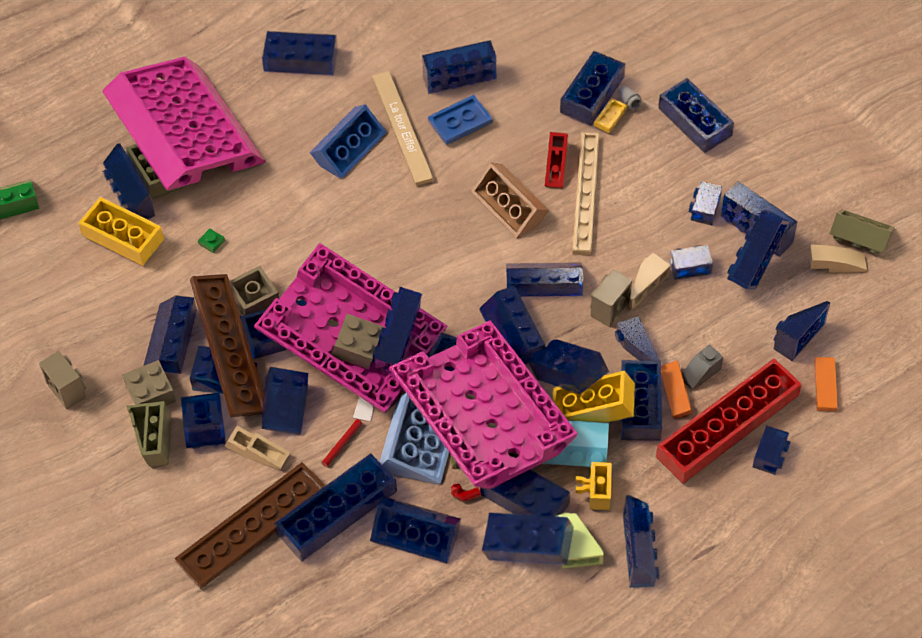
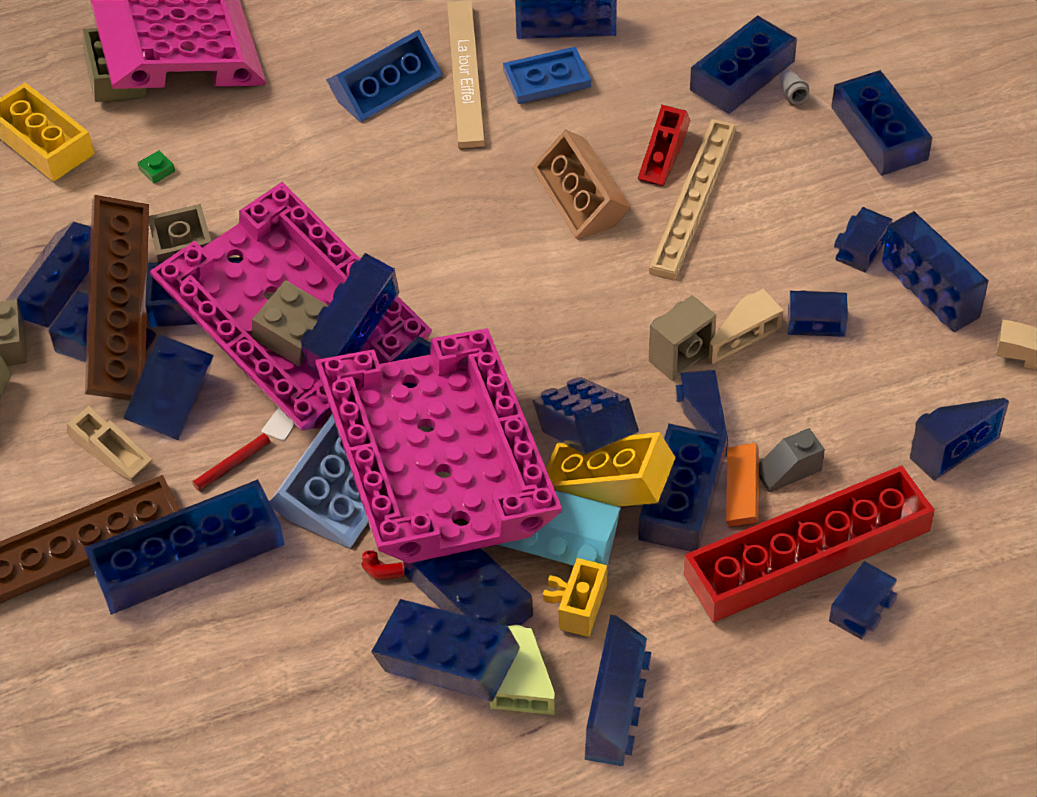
camera: 15 degrees right, 5 degrees down
(127, 183) = (70, 76): clear blue slope -> none
(203, 420) = (47, 393): clear blue slope -> none
(415, 529) = (289, 603): clear blue slope -> none
(513, 322) = (528, 348): clear blue slope -> none
(545, 279) = (595, 299): clear blue slope -> none
(610, 115) = (759, 104): yellow plate -> none
(758, 249) = (917, 308): clear blue brick -> none
(825, 384) = (976, 522): orange tile -> none

